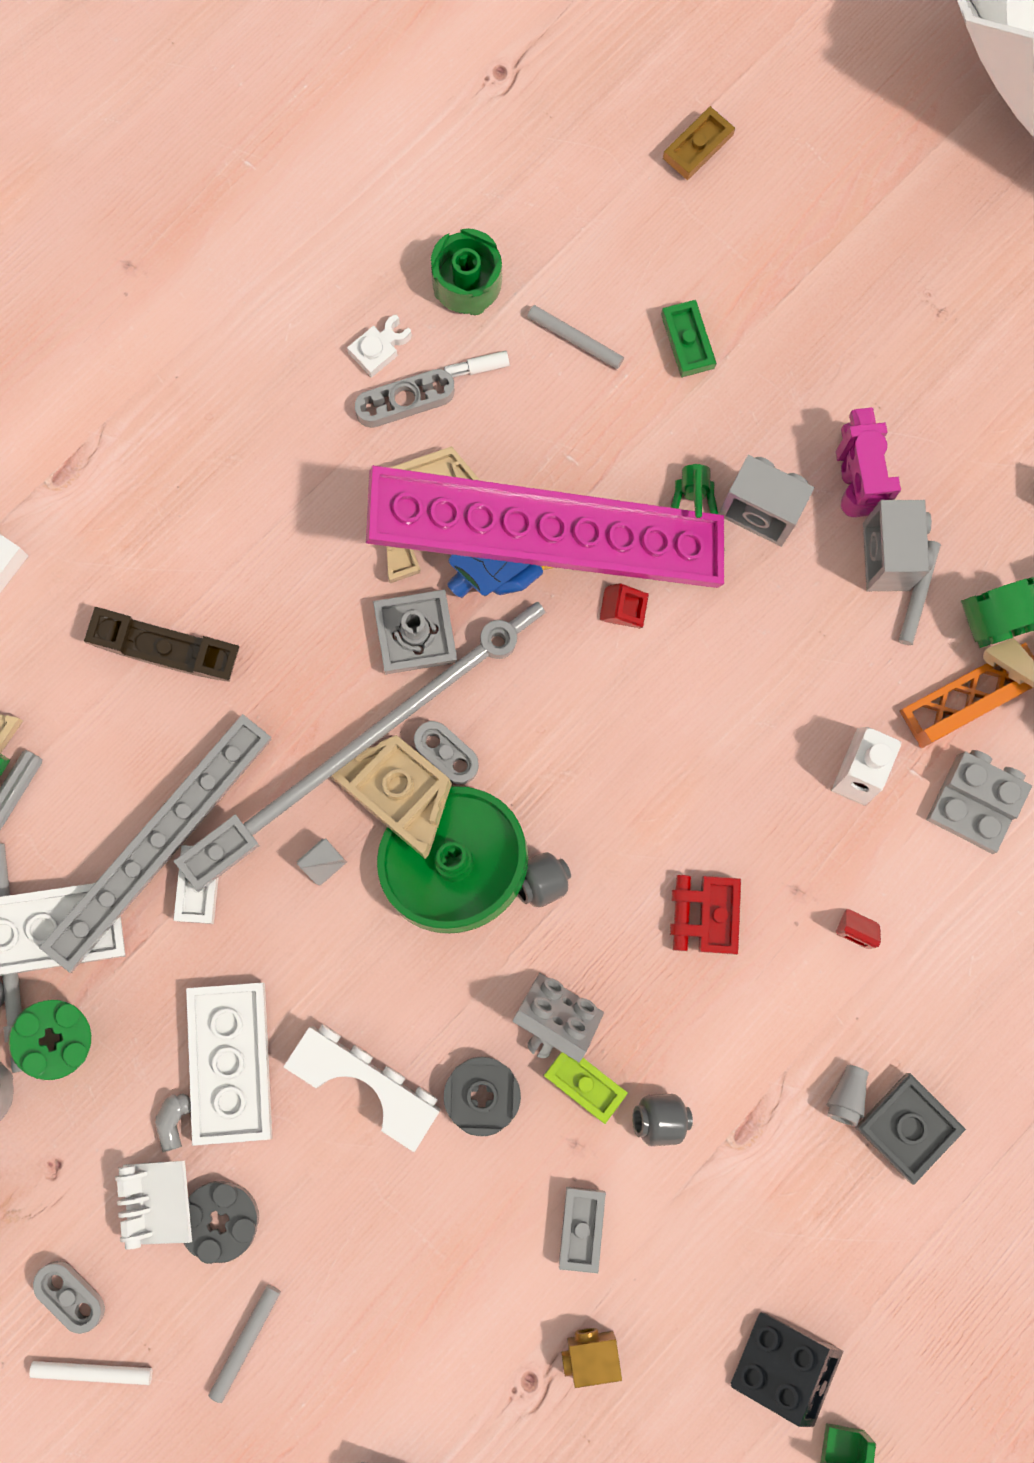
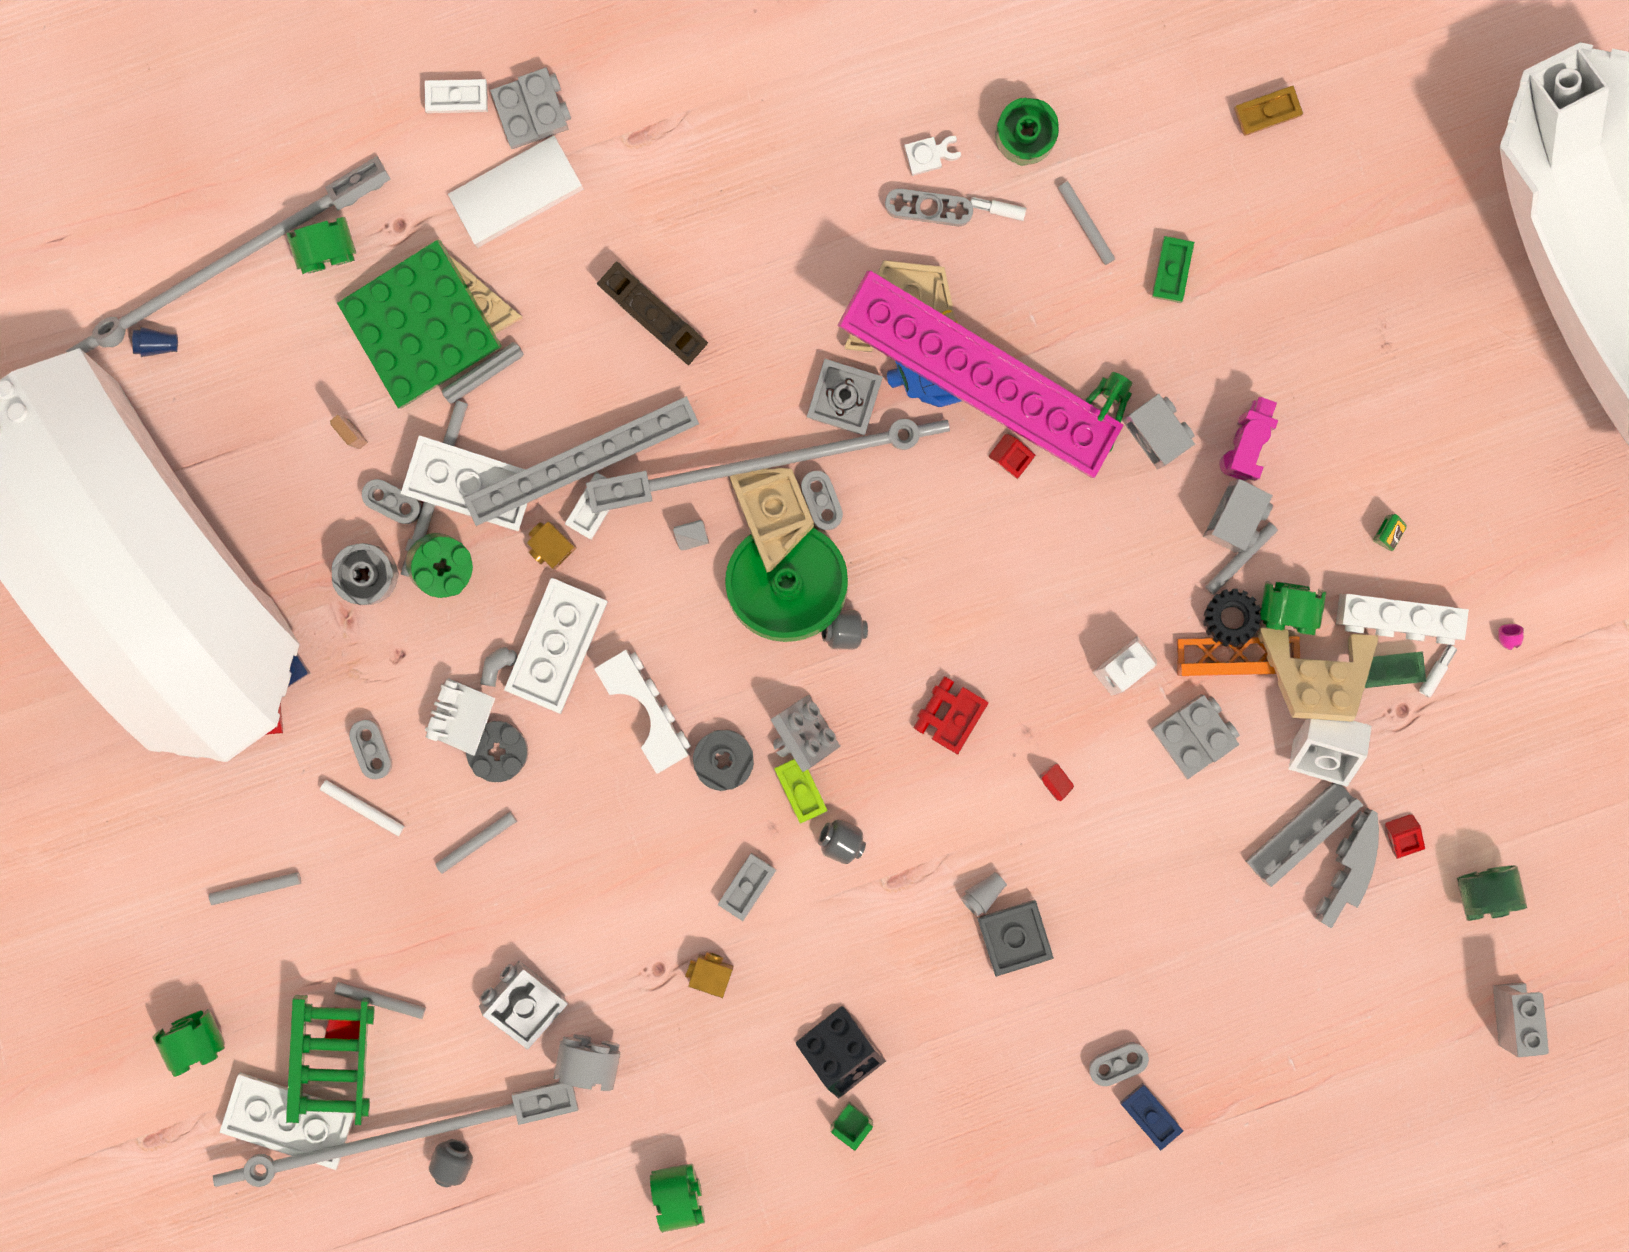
camera: 35 degrees right, 10 degrees up
(167, 953) = (549, 545): none -> pearl gold brick
(943, 676) = (1219, 630): none -> black tyre

